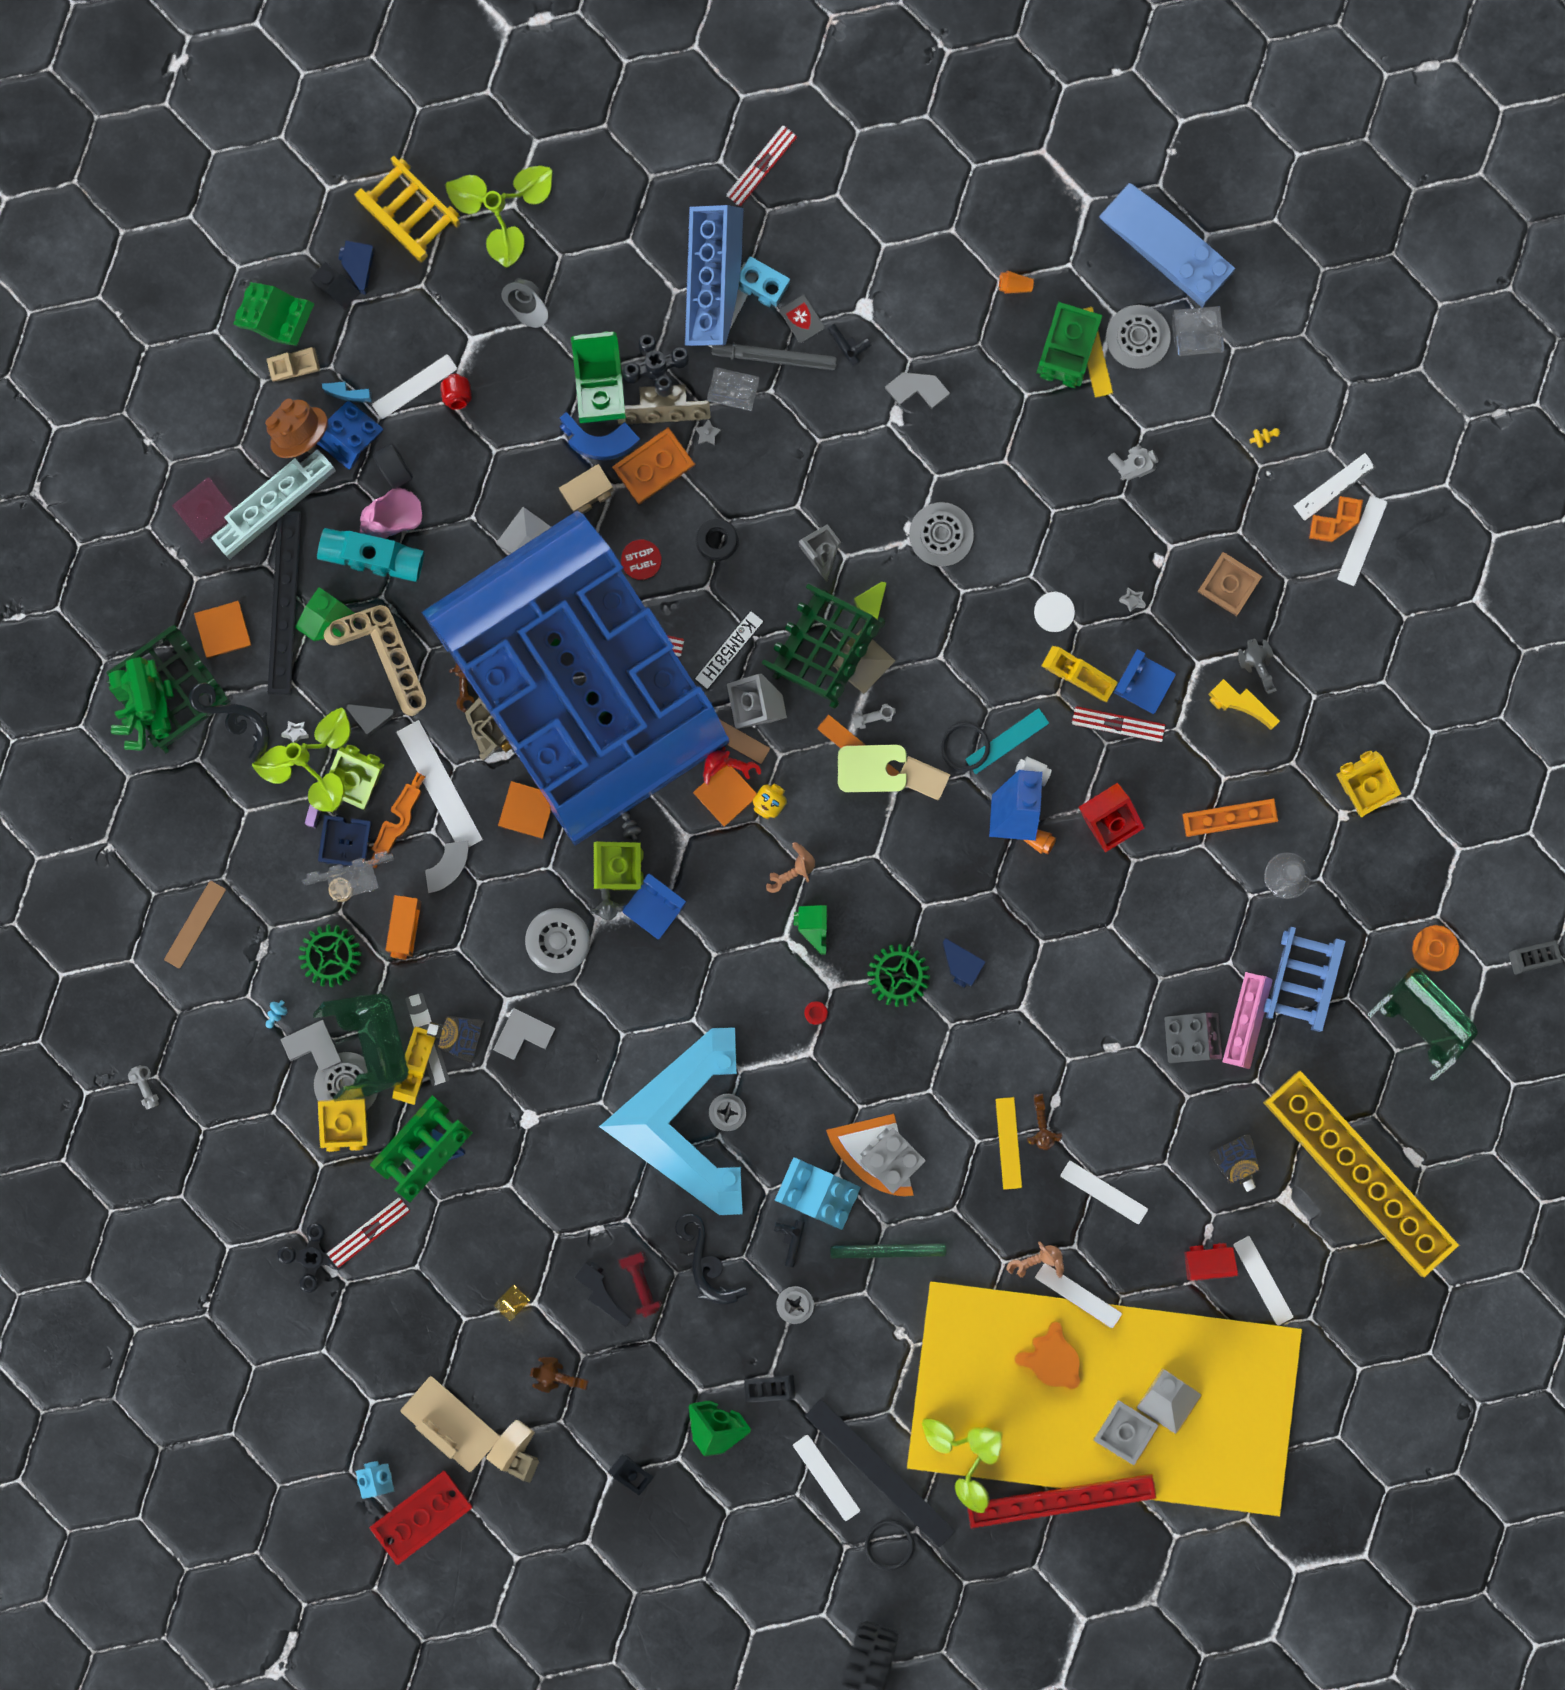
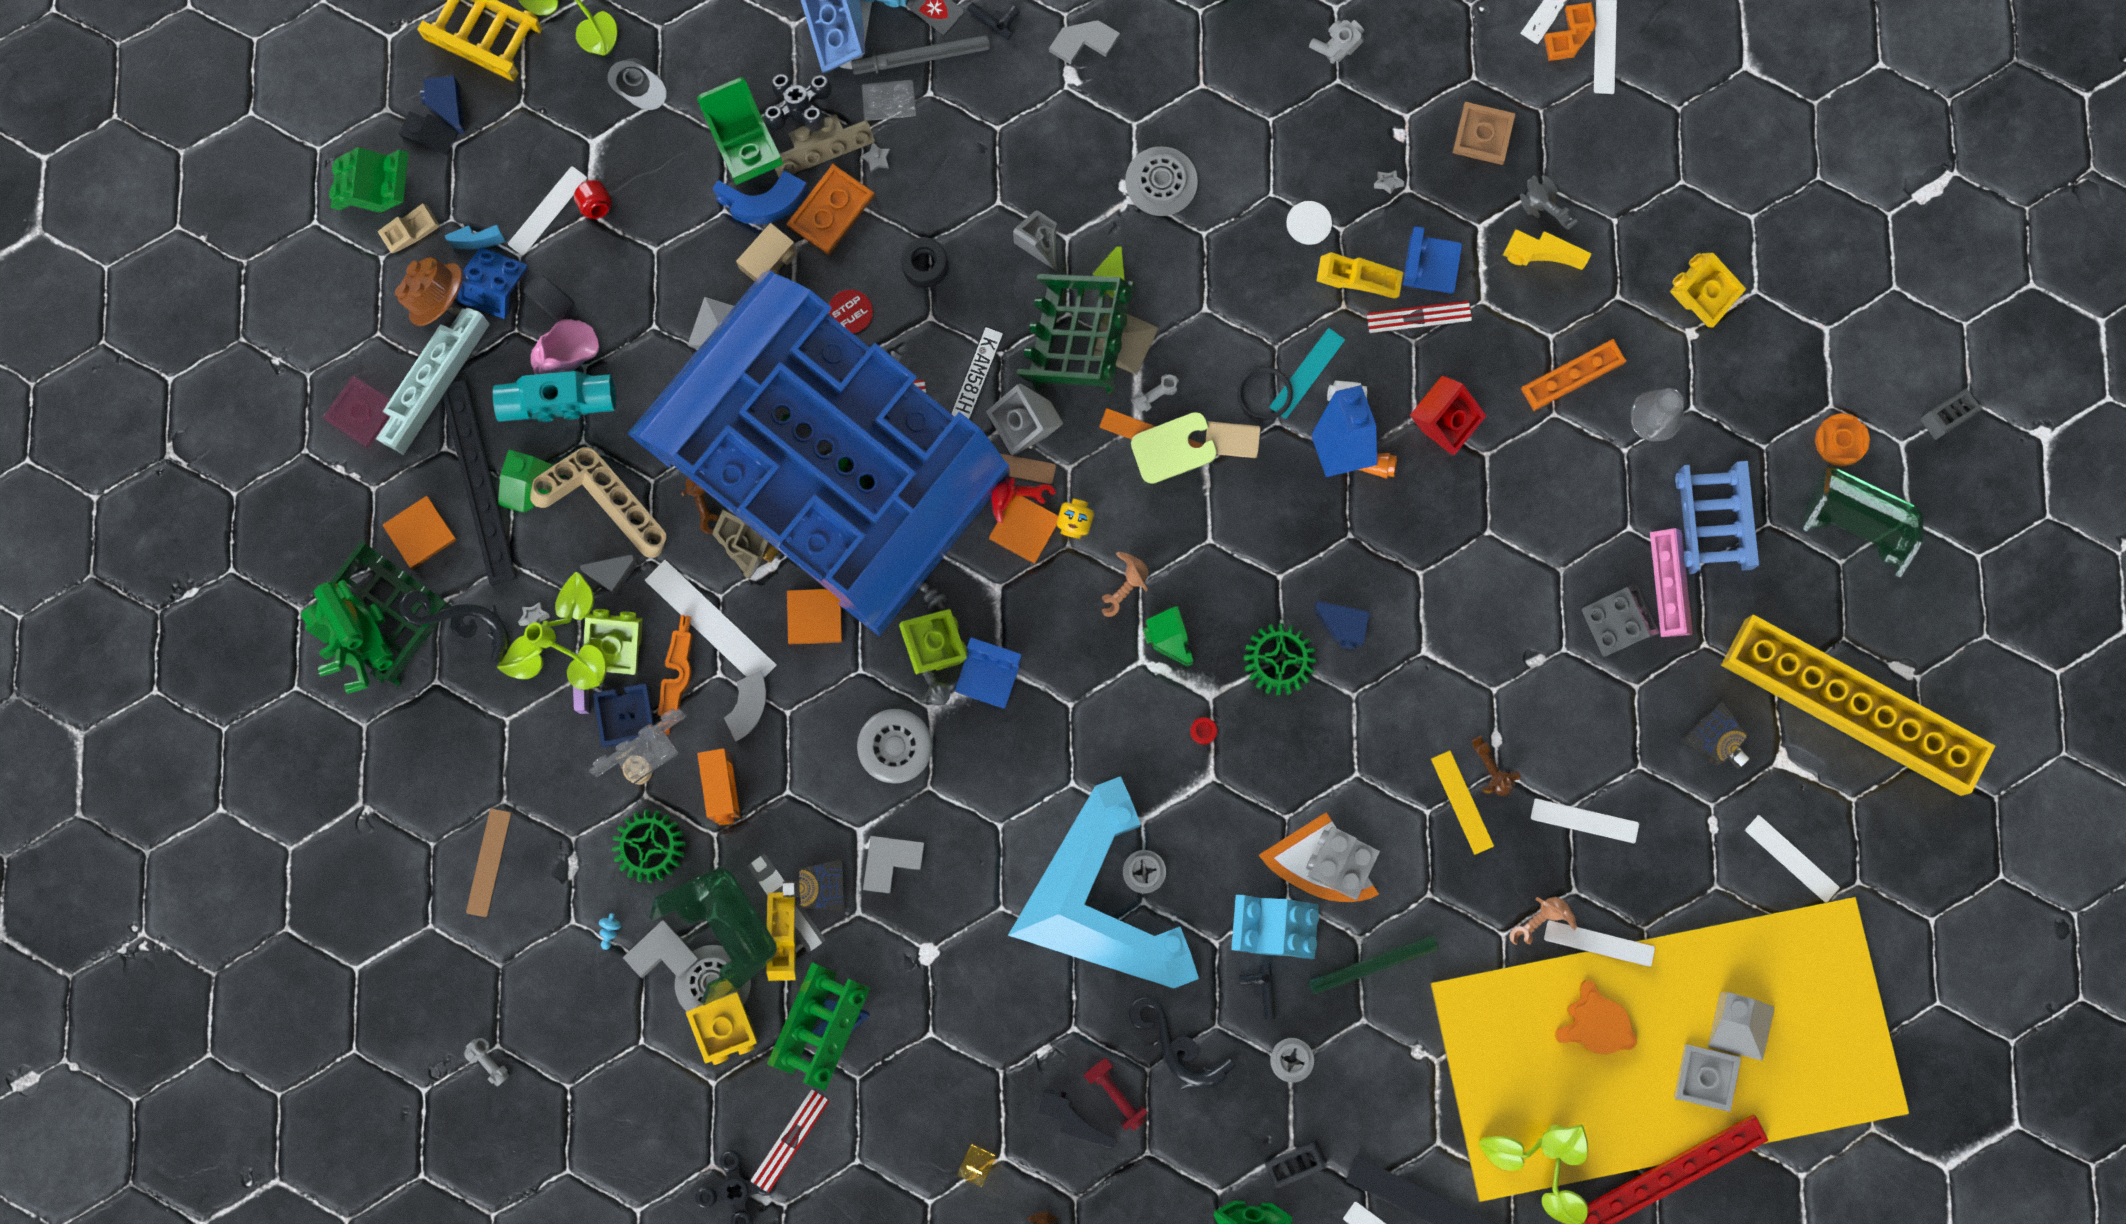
camera: 20 degrees left, 5 degrees down
(1210, 1262) = (1731, 858): red slope -> none

